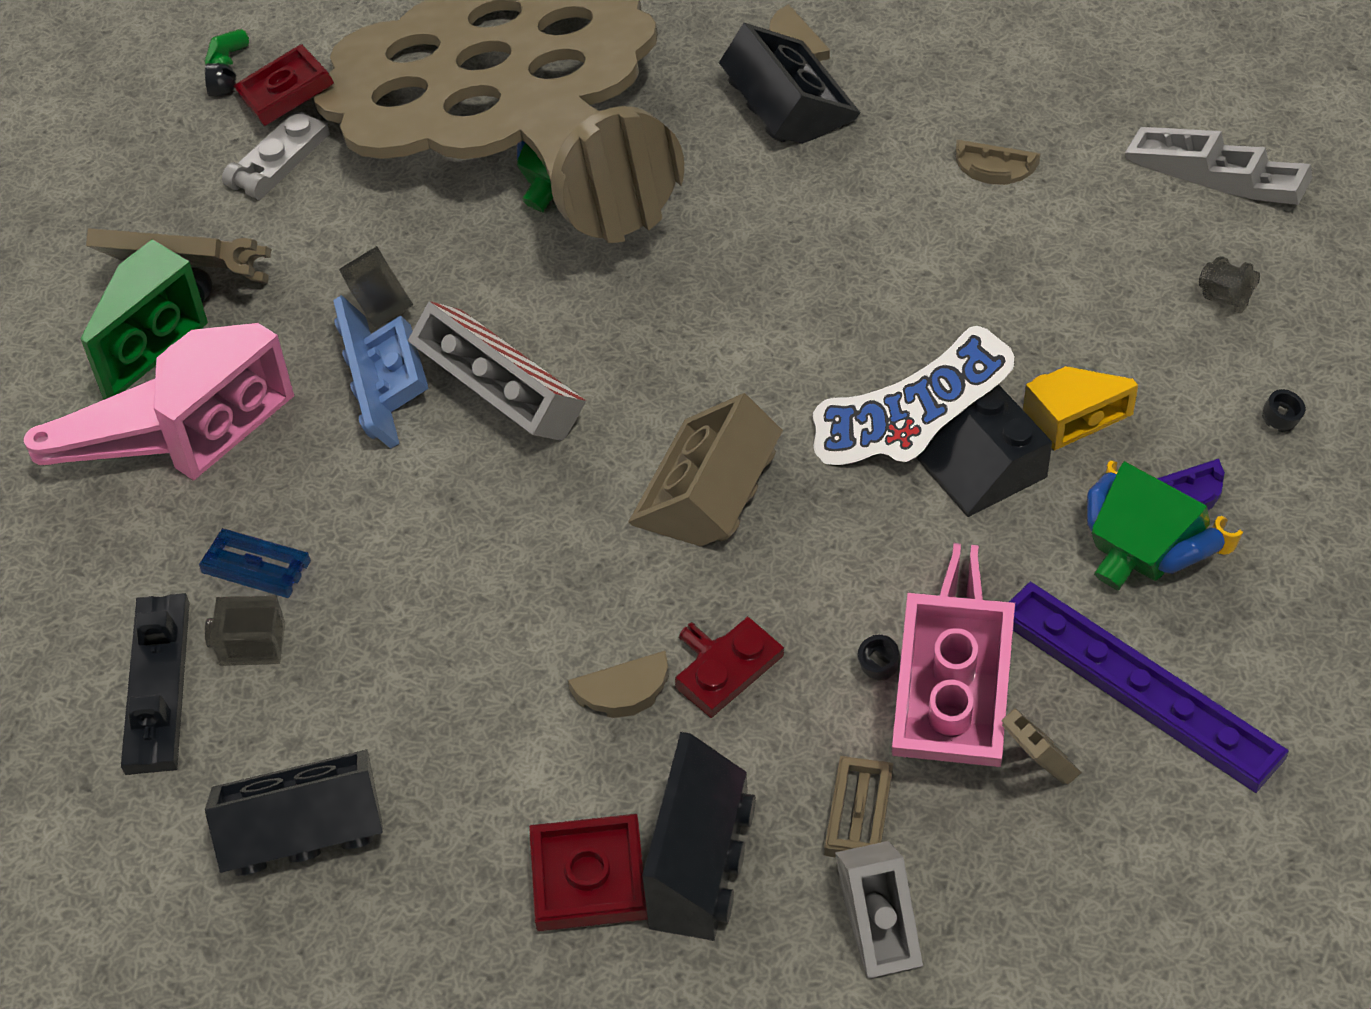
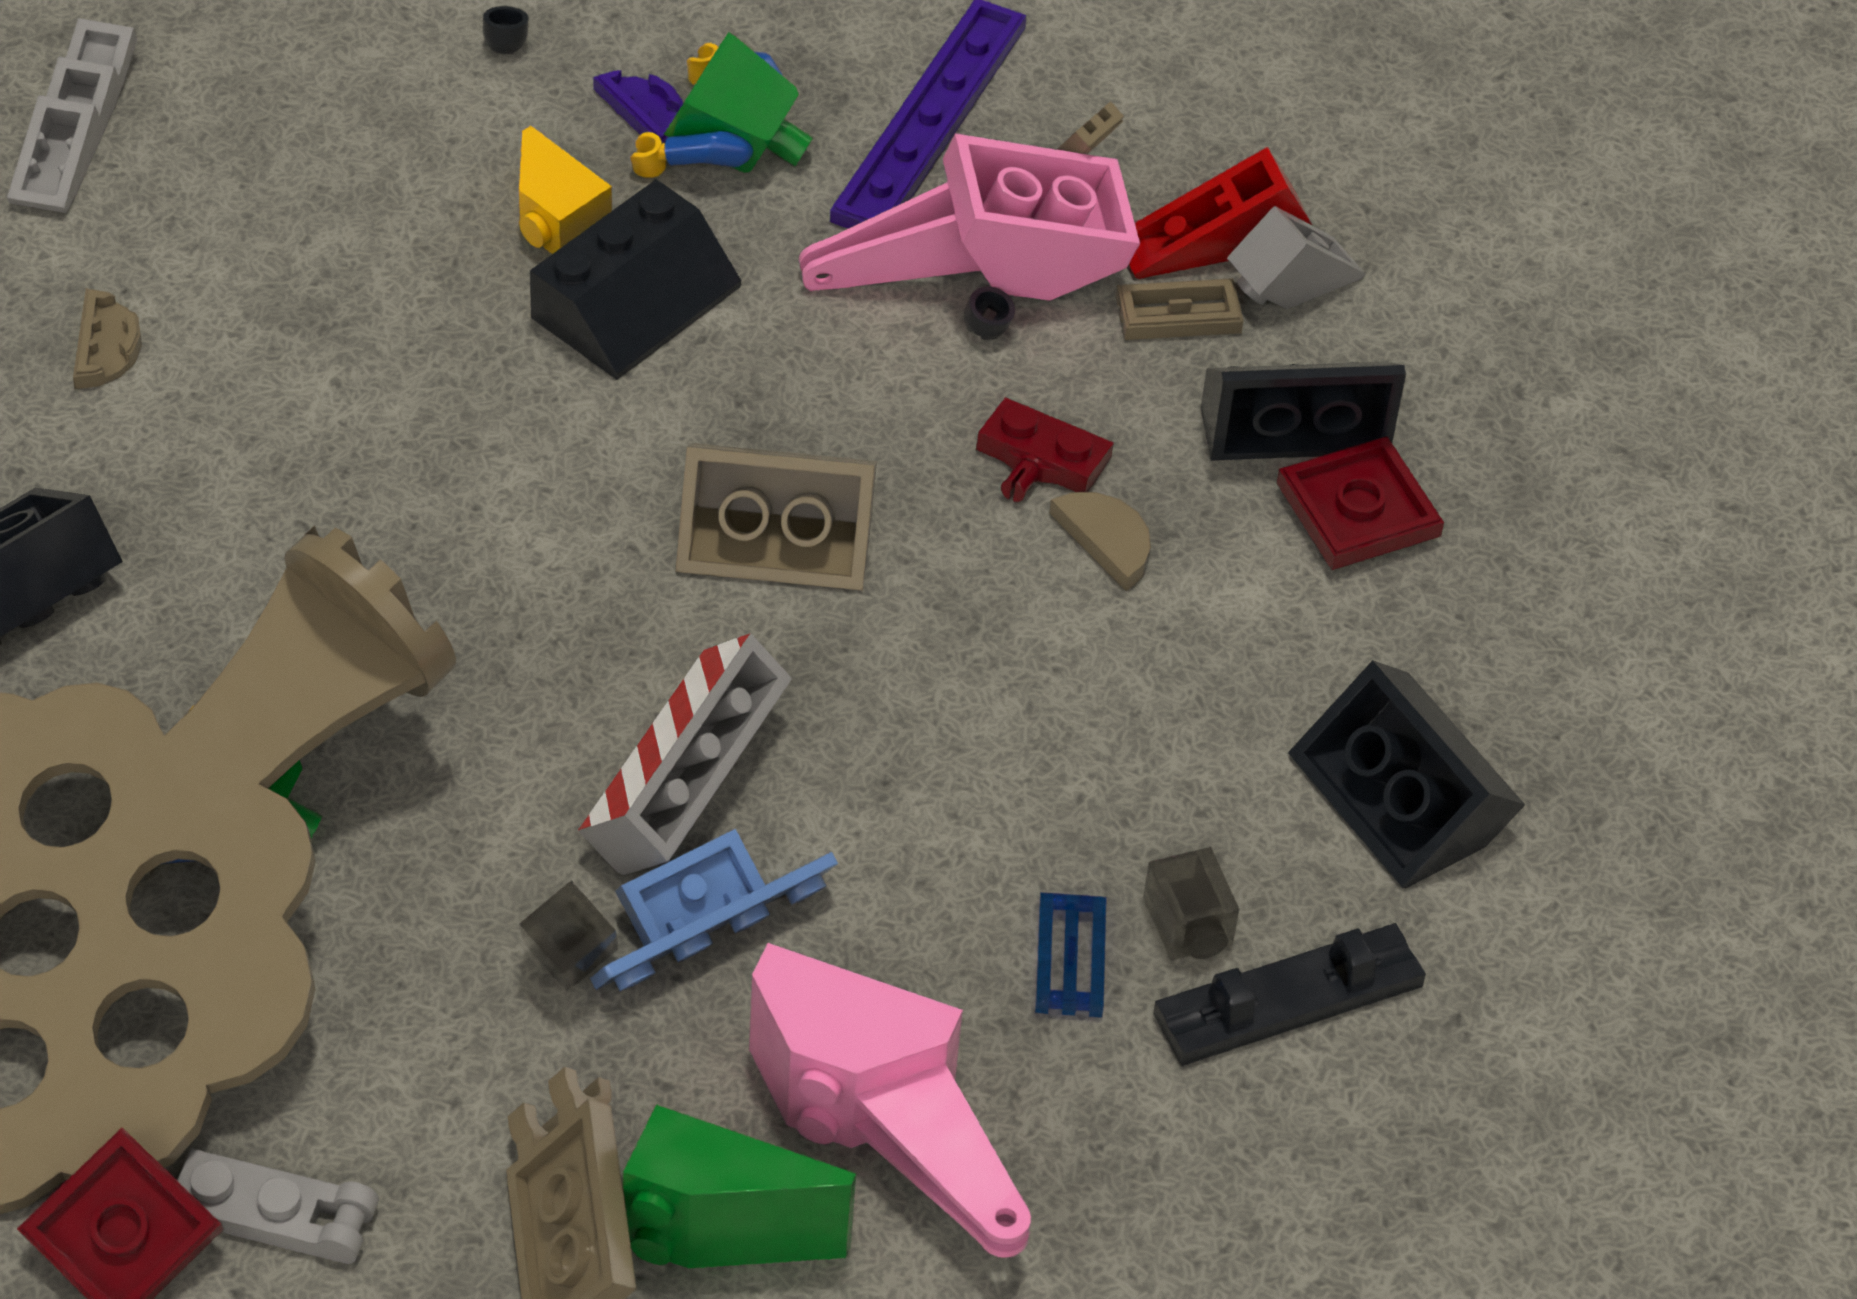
camera: 115 degrees left, 0 degrees up
(910, 413) = (637, 321): sticker -> none
(945, 860) = (1213, 217): none -> red slope
(1229, 282) = (307, 81): clear smoke brick -> none

